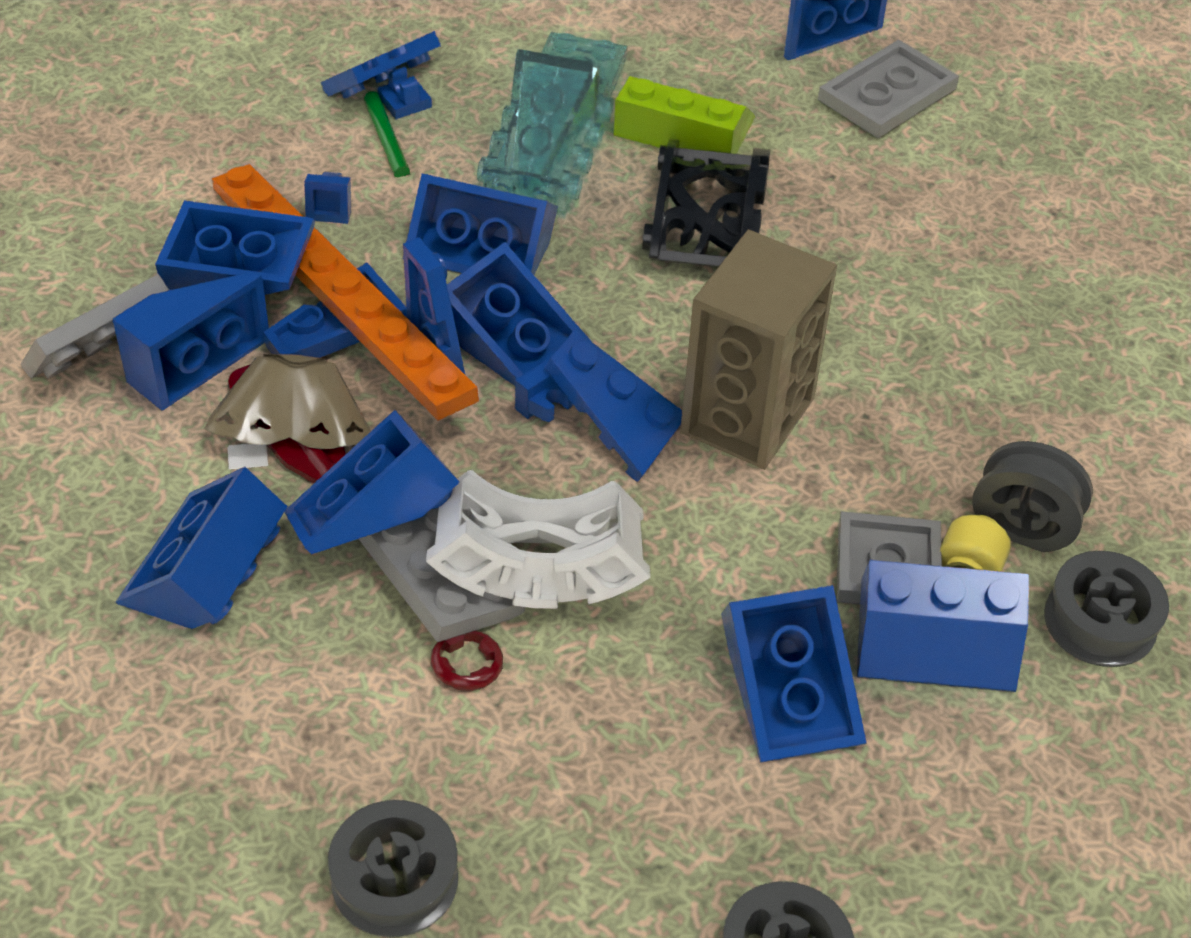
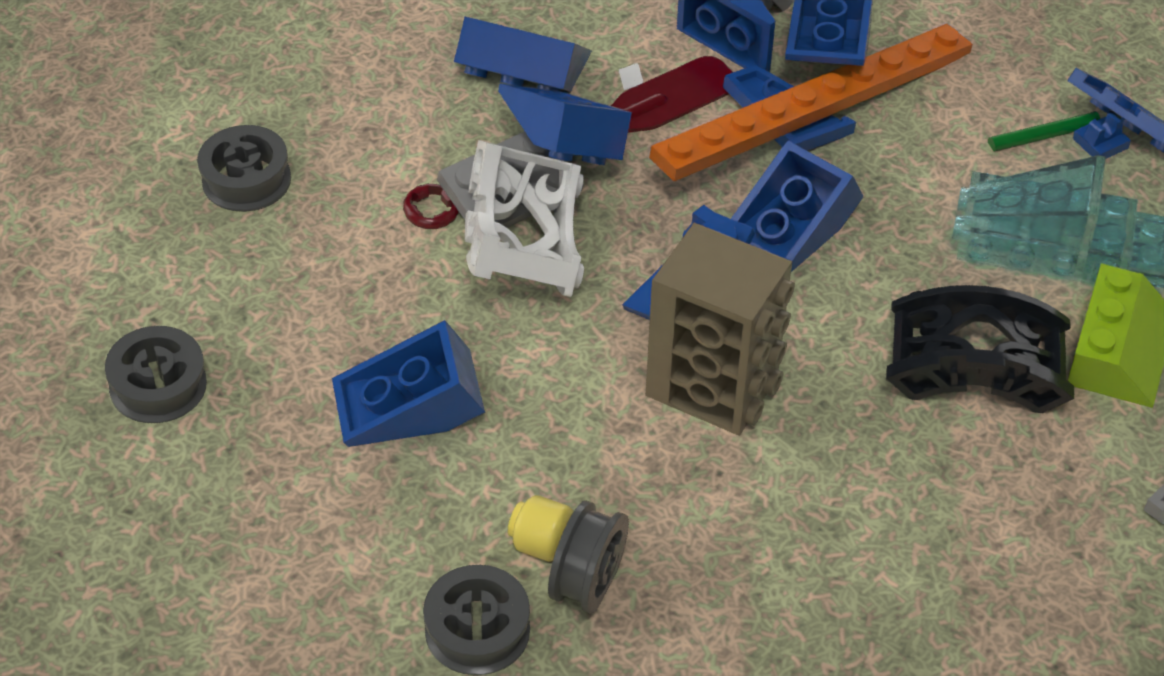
camera: 90 degrees right, 0 degrees up
(290, 397) = (679, 84): dark tan piece -> none
(328, 197) = (934, 91): blue tile -> none
(429, 298) = (761, 135): blue wing -> none
(471, 221) = (913, 190): blue slope -> none
(883, 539) = (531, 463): light grey plate -> none
(942, 625) = (451, 483): blue slope -> none

